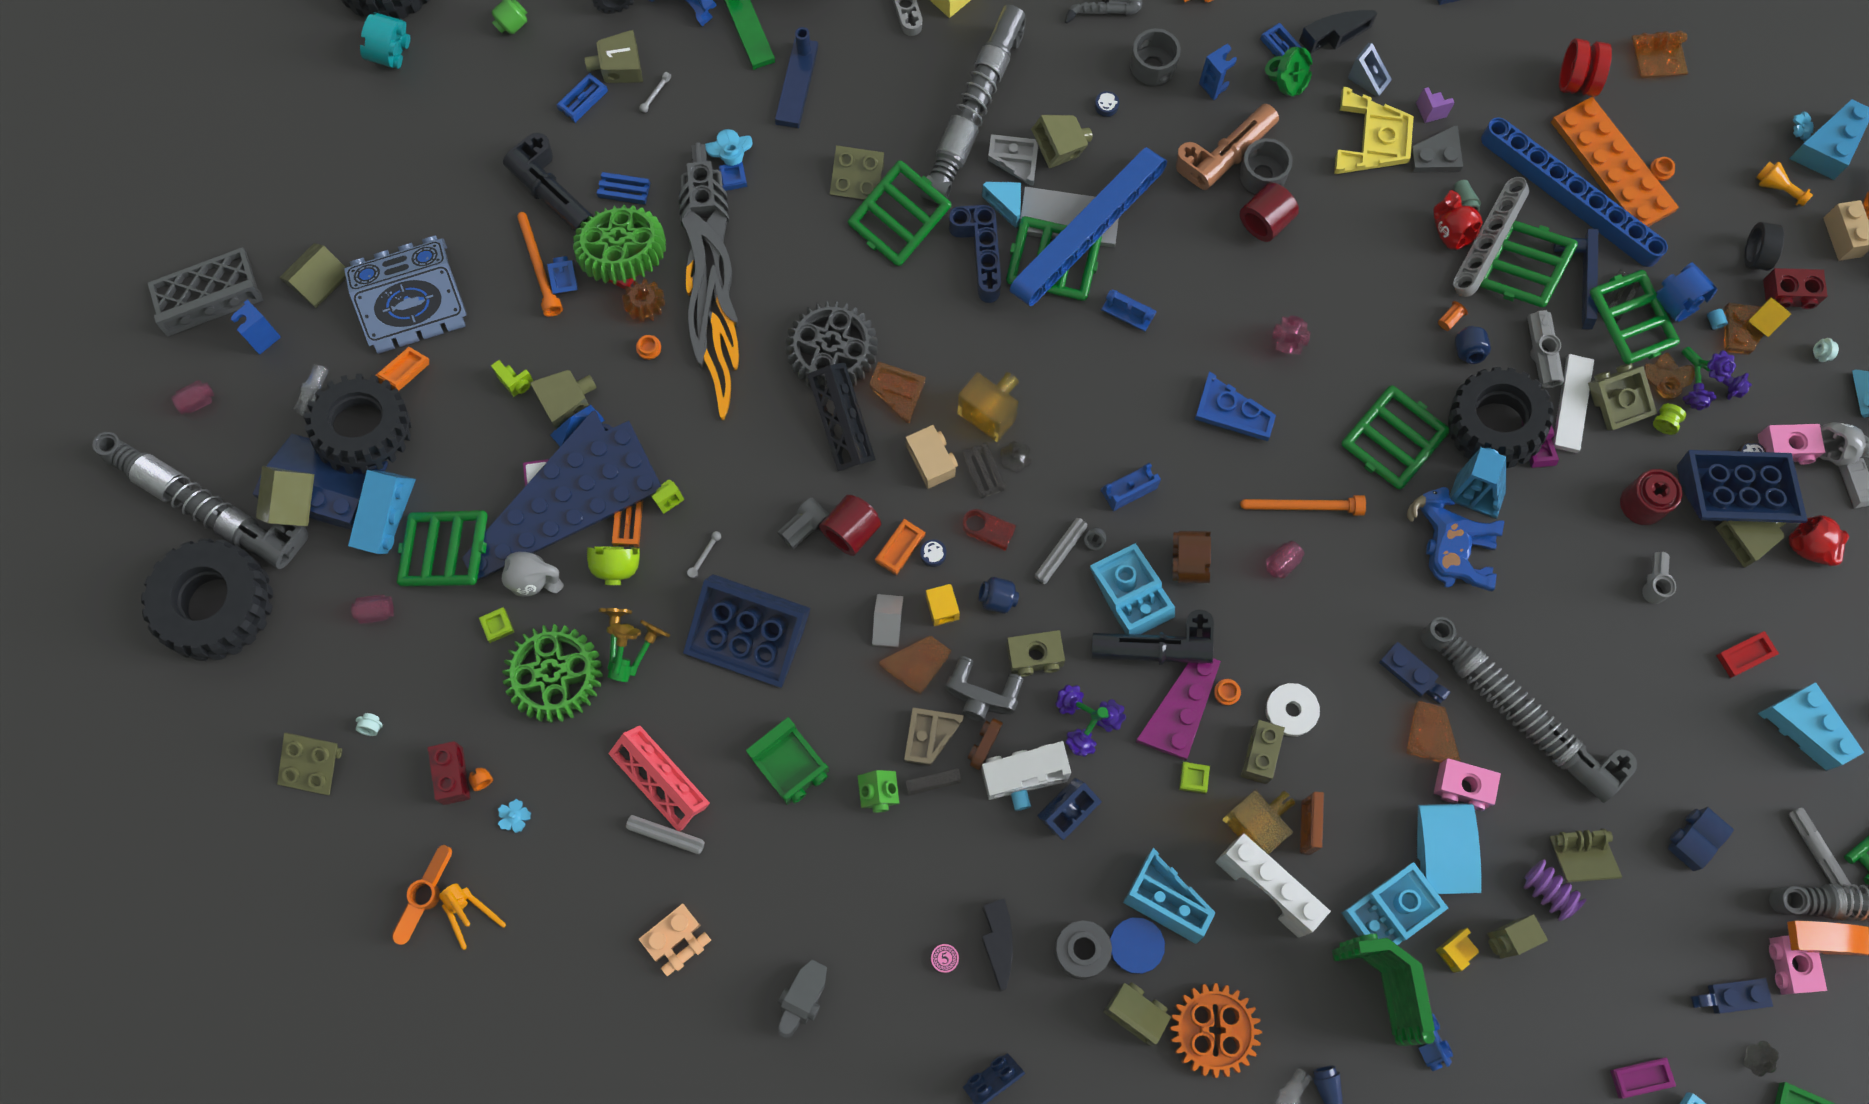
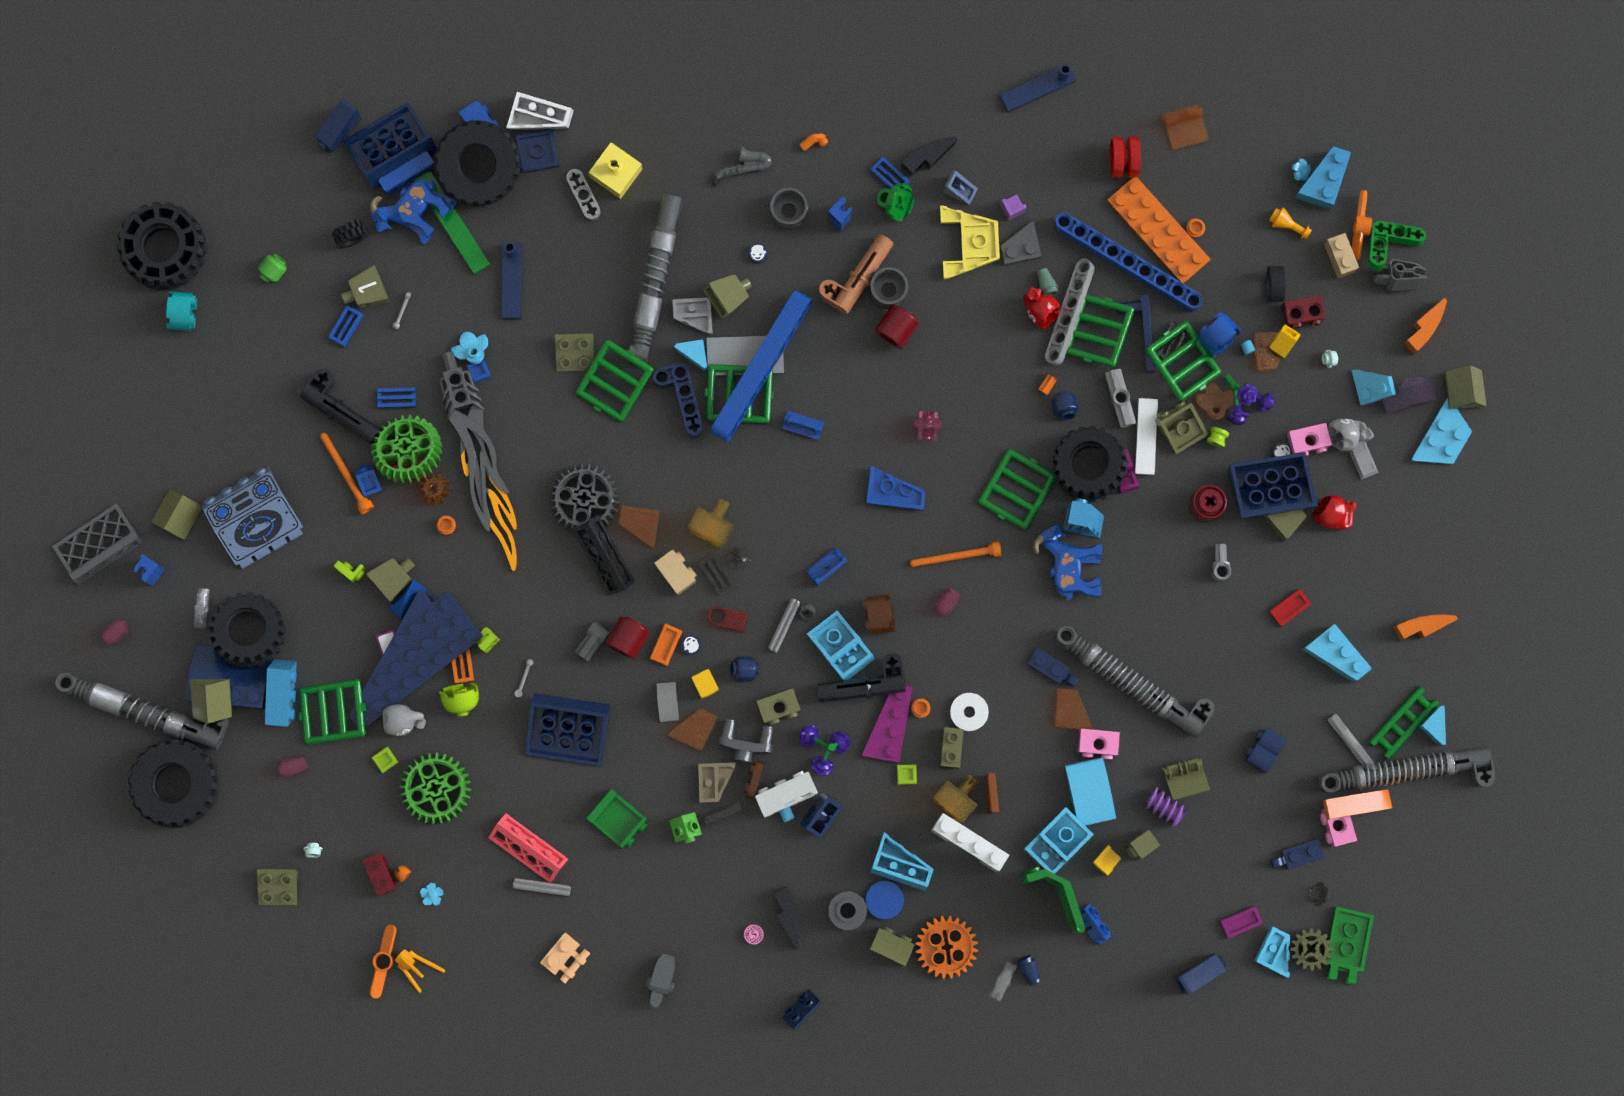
camera: 15 degrees left, 10 degrees up
(403, 368) = (266, 579): orange tile -> none
(618, 666) = (482, 774): plant -> none

